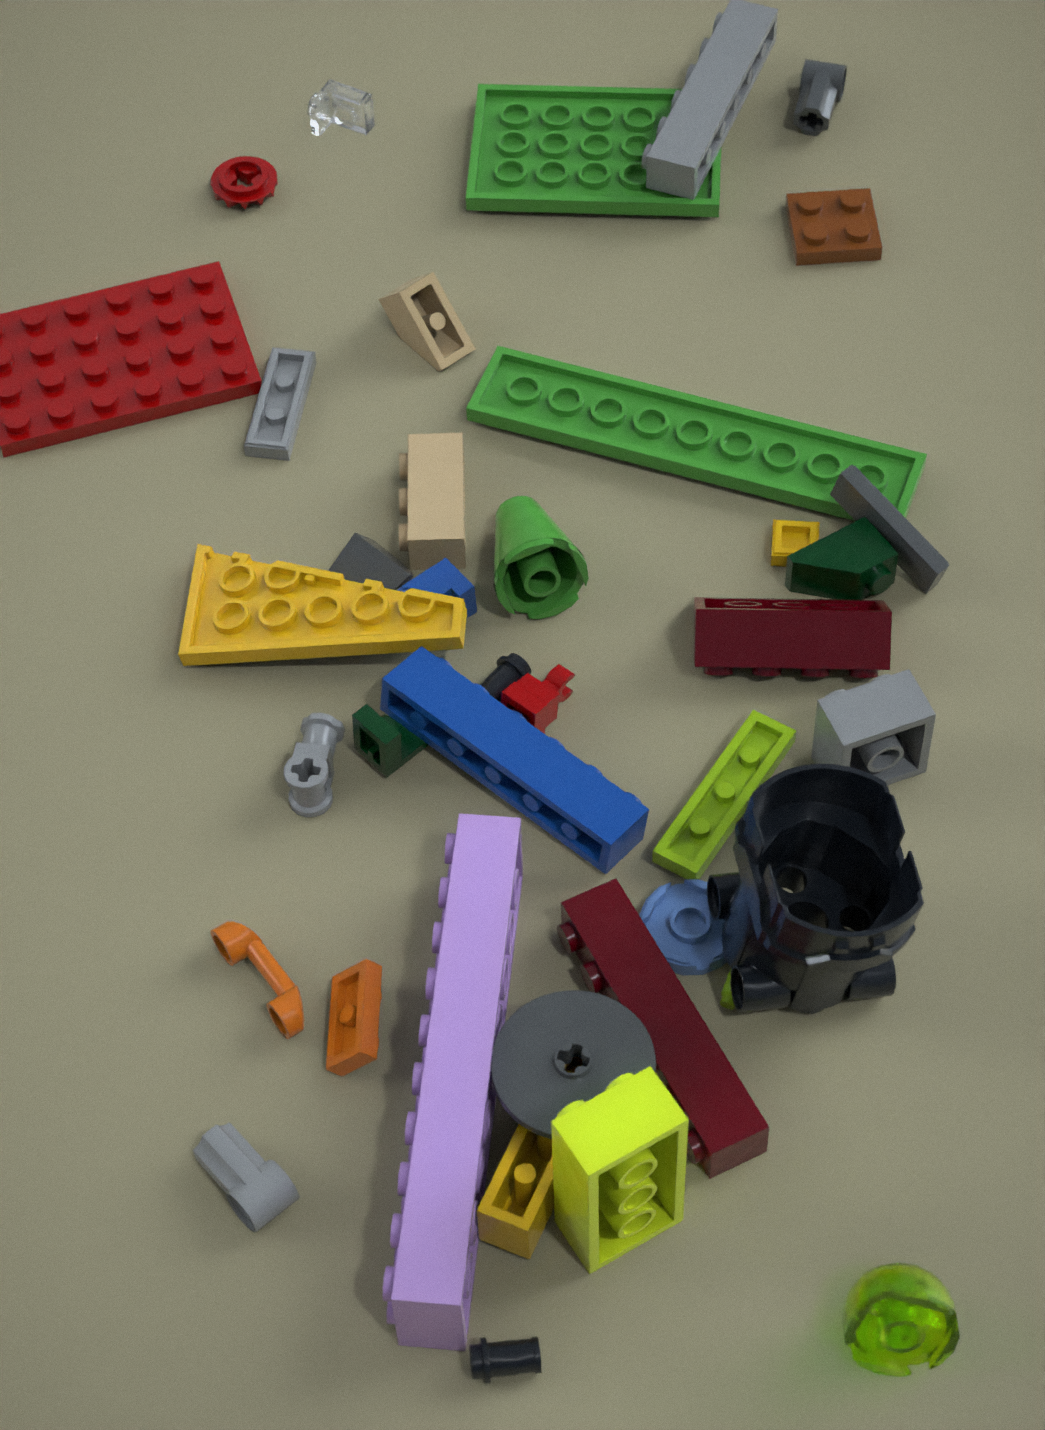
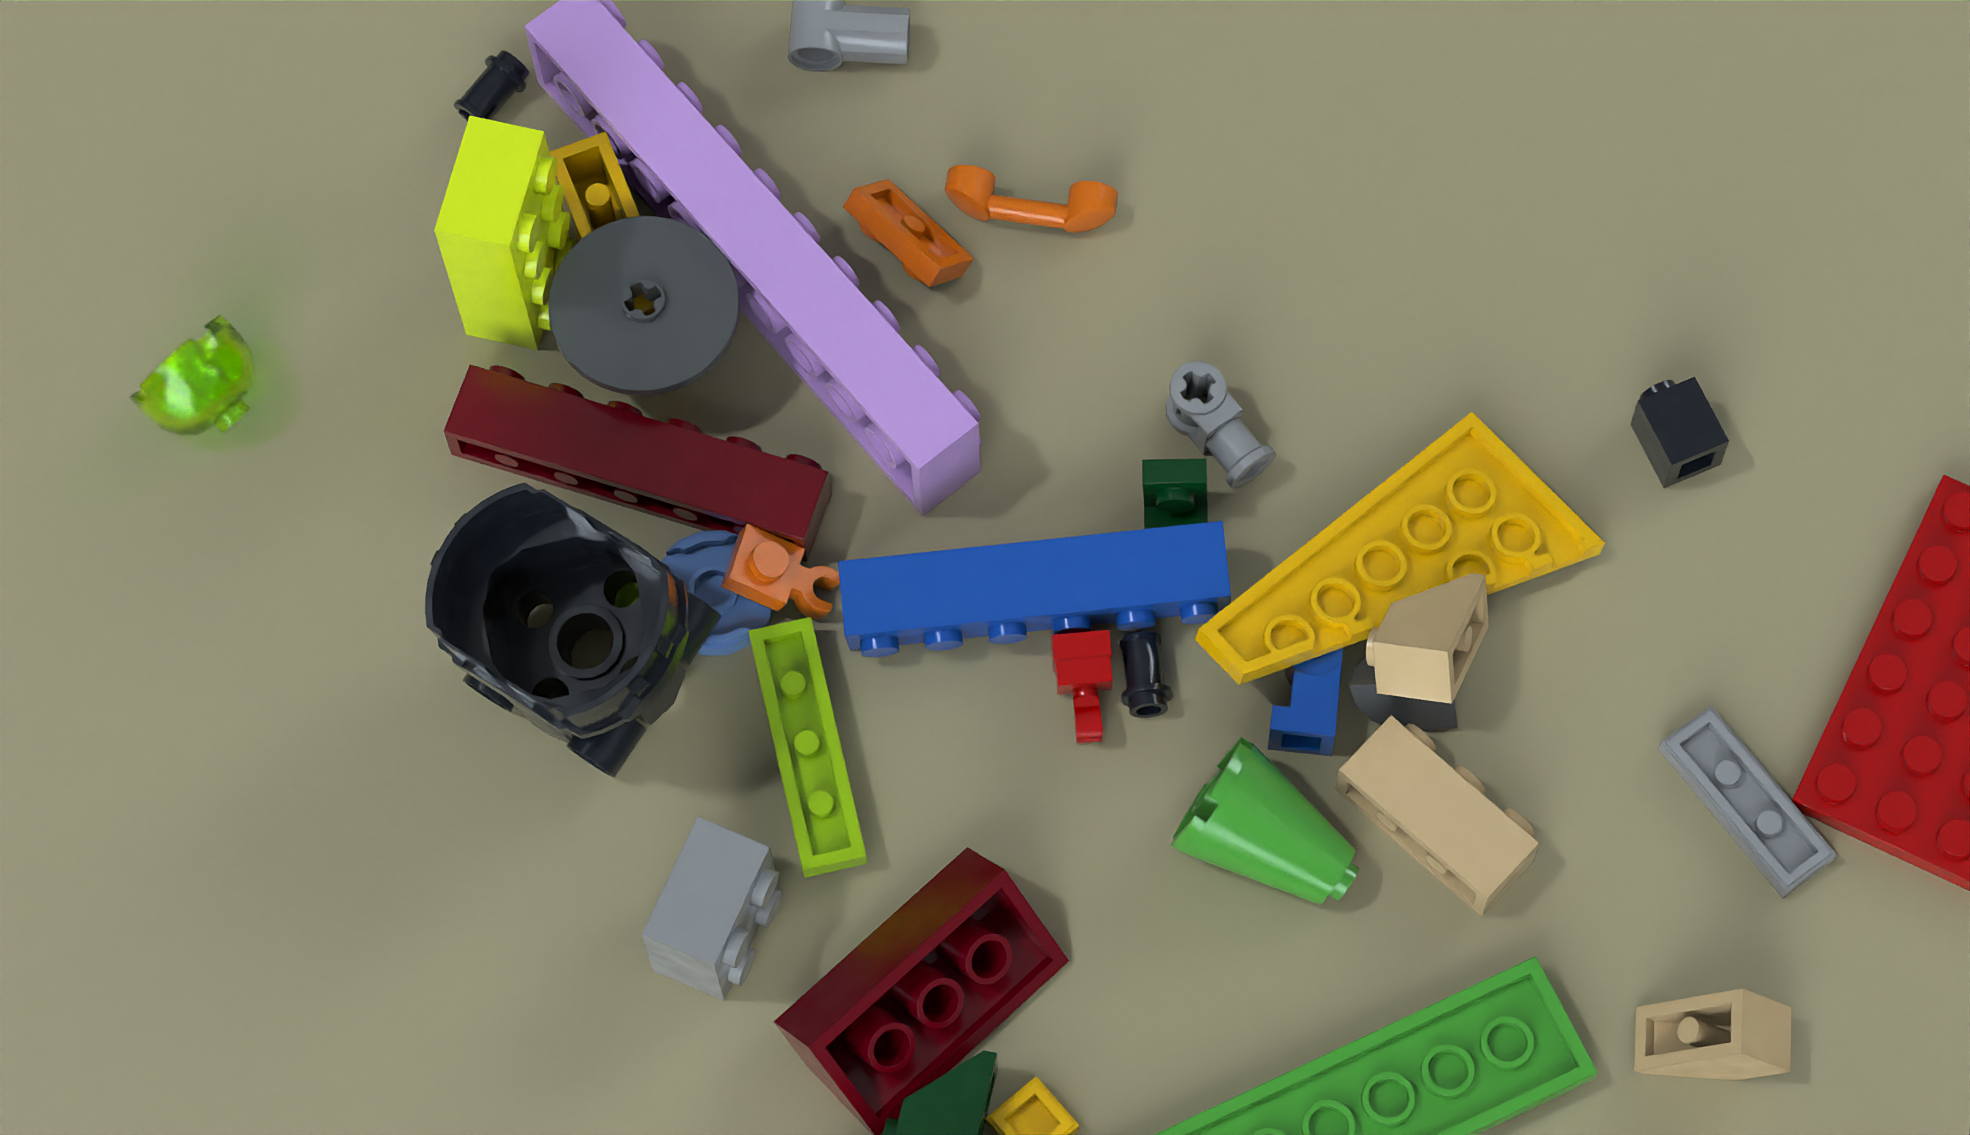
camera: 135 degrees right, 15 degrees up
(92, 561) = (1678, 430): none -> black brick
(349, 544) = (1430, 640): none -> tan slope
(649, 889) = (771, 572): none -> orange plate

